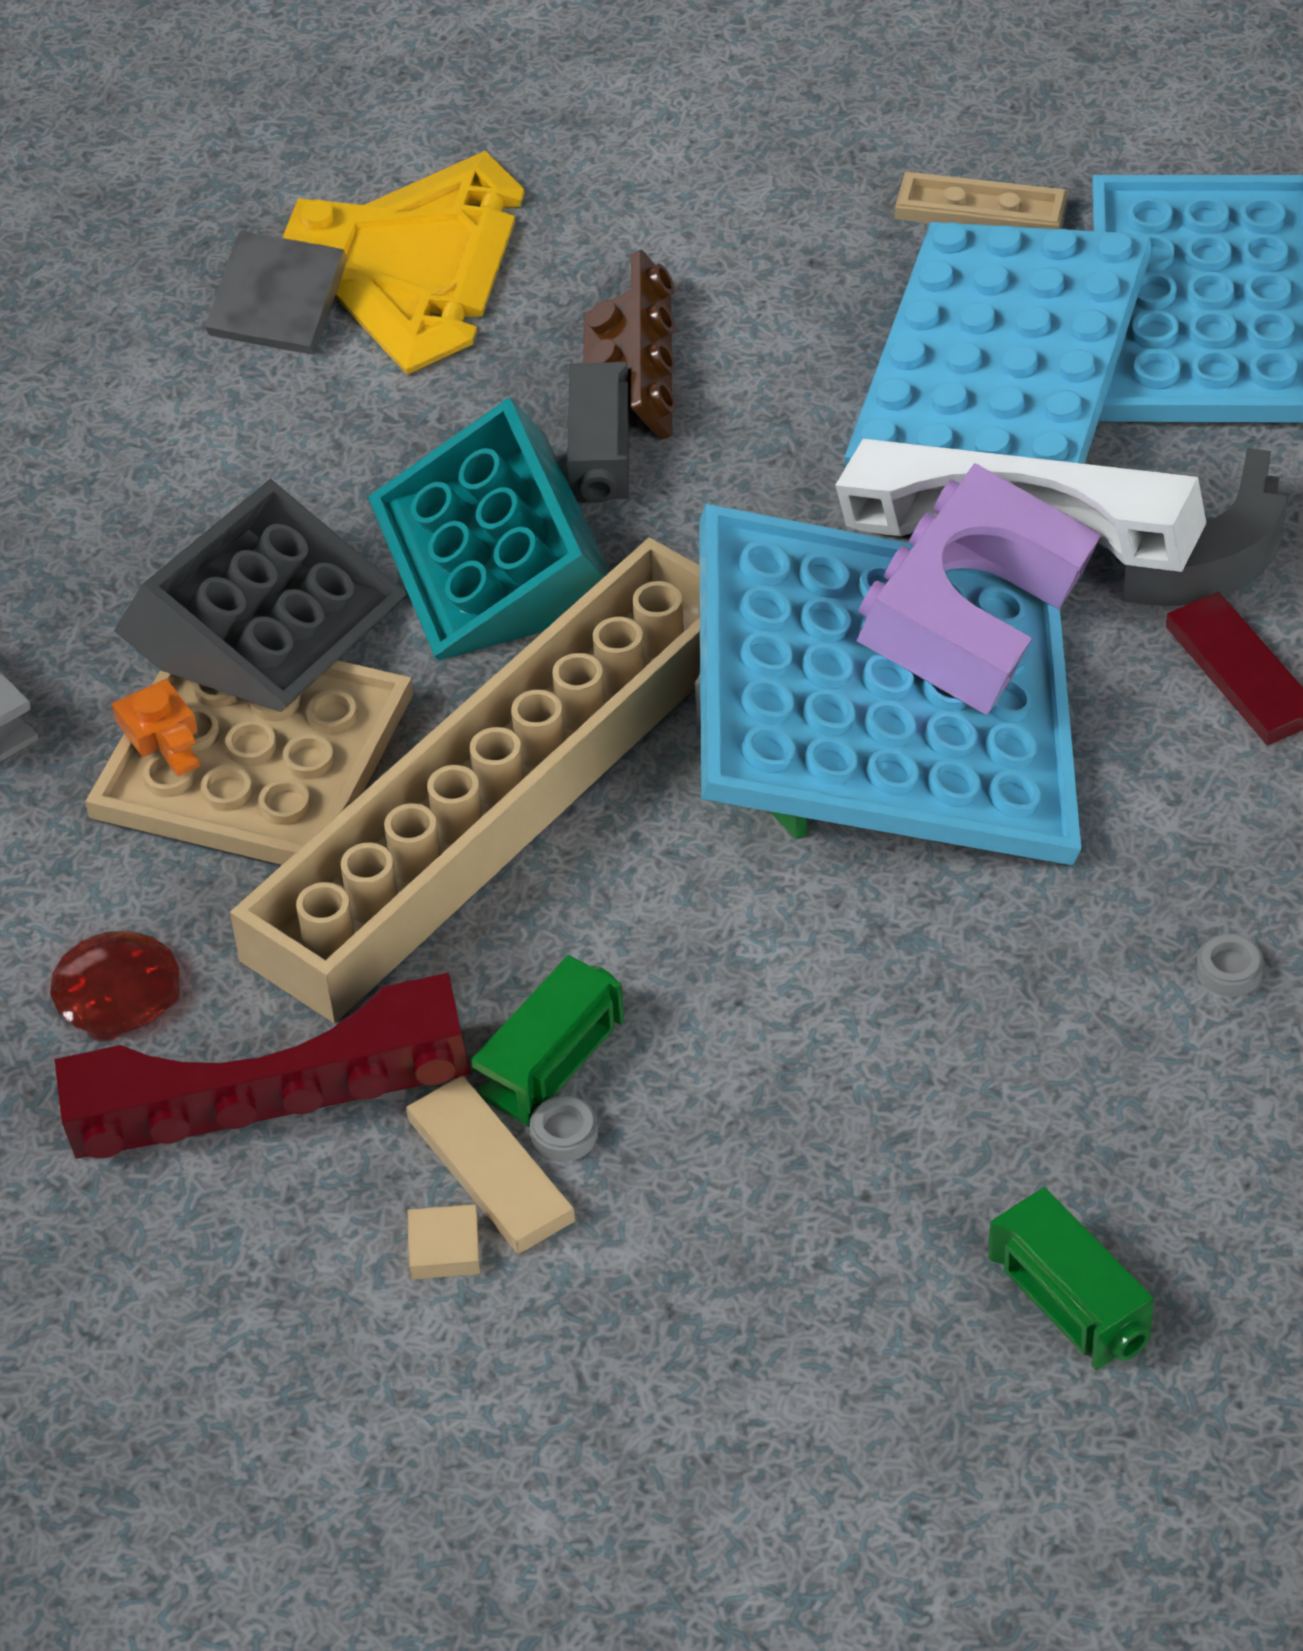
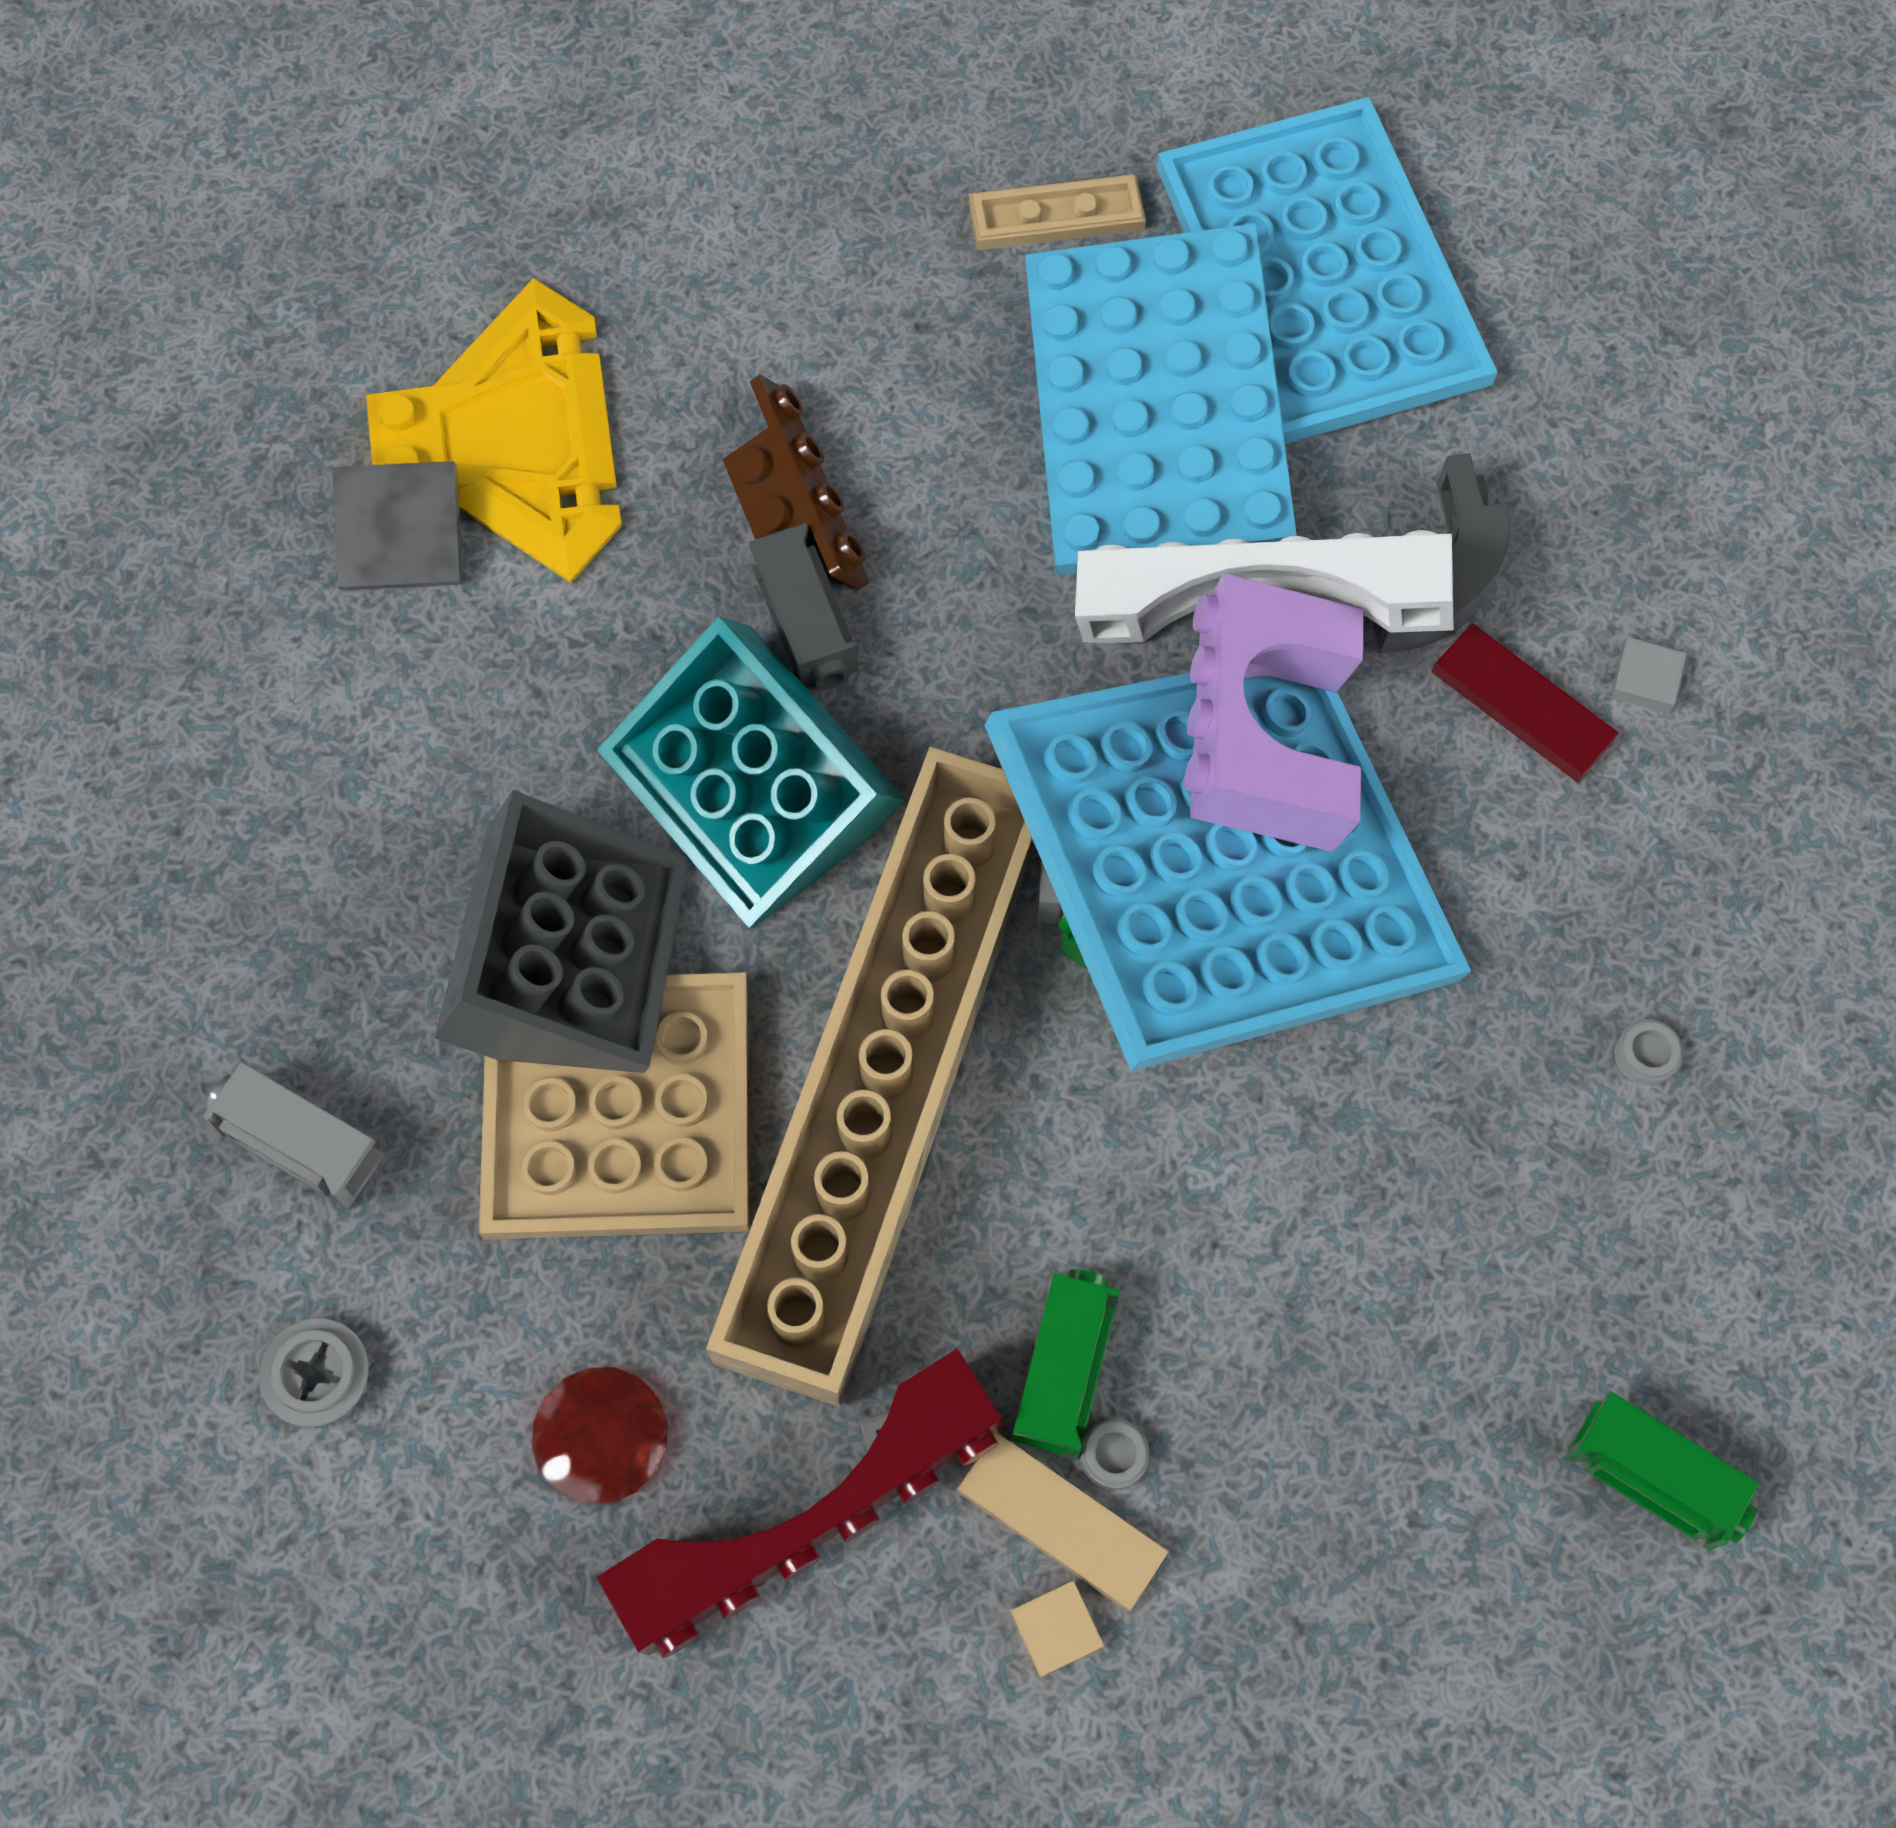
camera: 25 degrees left, 20 degrees up
(159, 721) = (518, 1116): orange plate -> none

